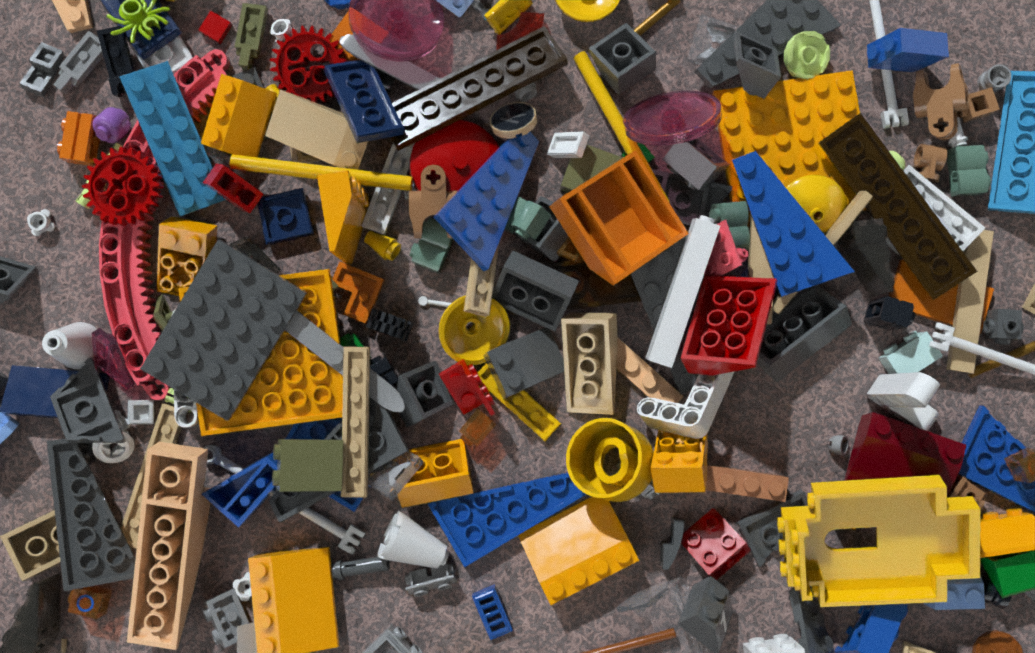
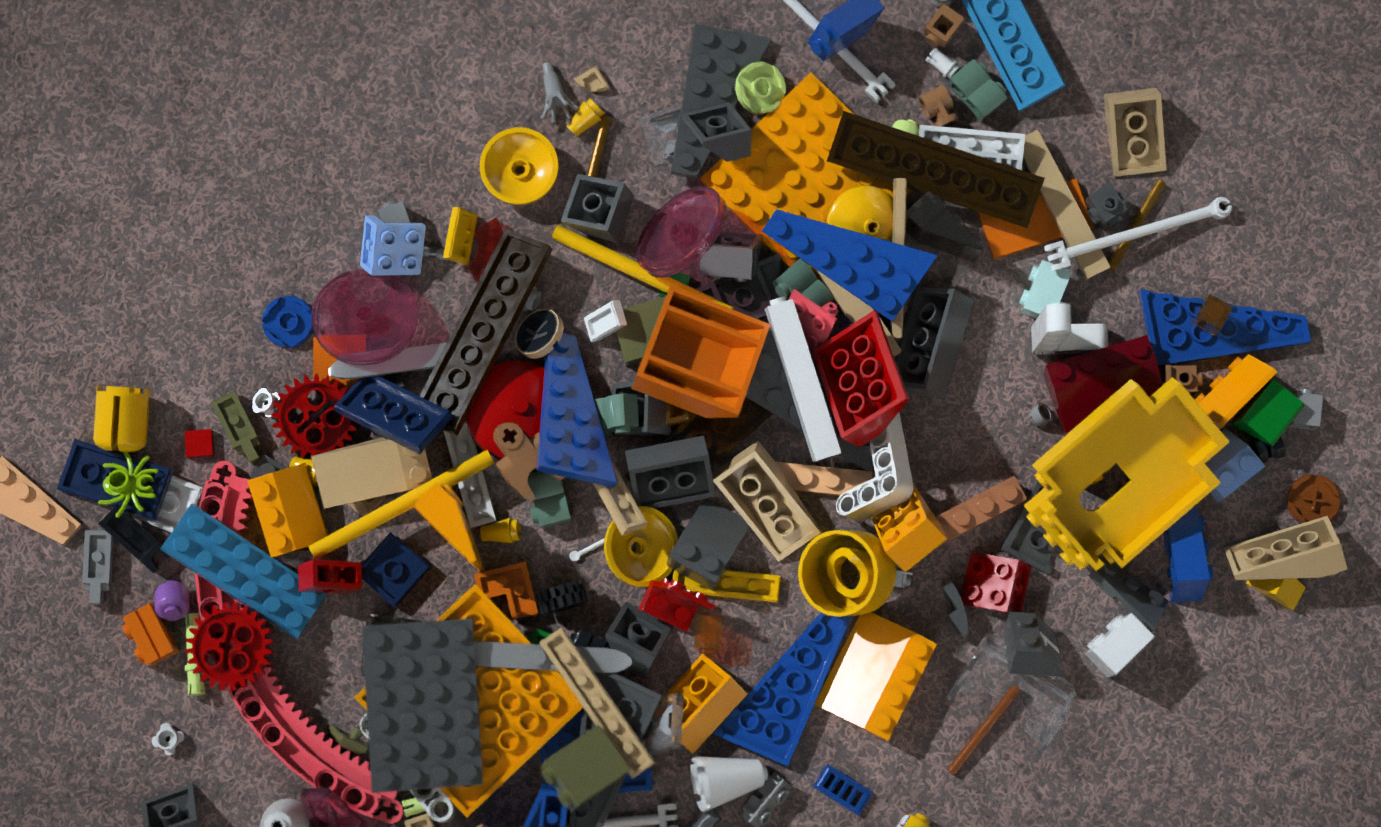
camera: 35 degrees left, 5 degrees down
(44, 67) = (65, 597): dark grey slope -> none
(182, 251) = (327, 672): light orange slope -> none
(889, 313) = (998, 268): black brick -> none
(941, 104) = (912, 48): medium nougat piece -> none

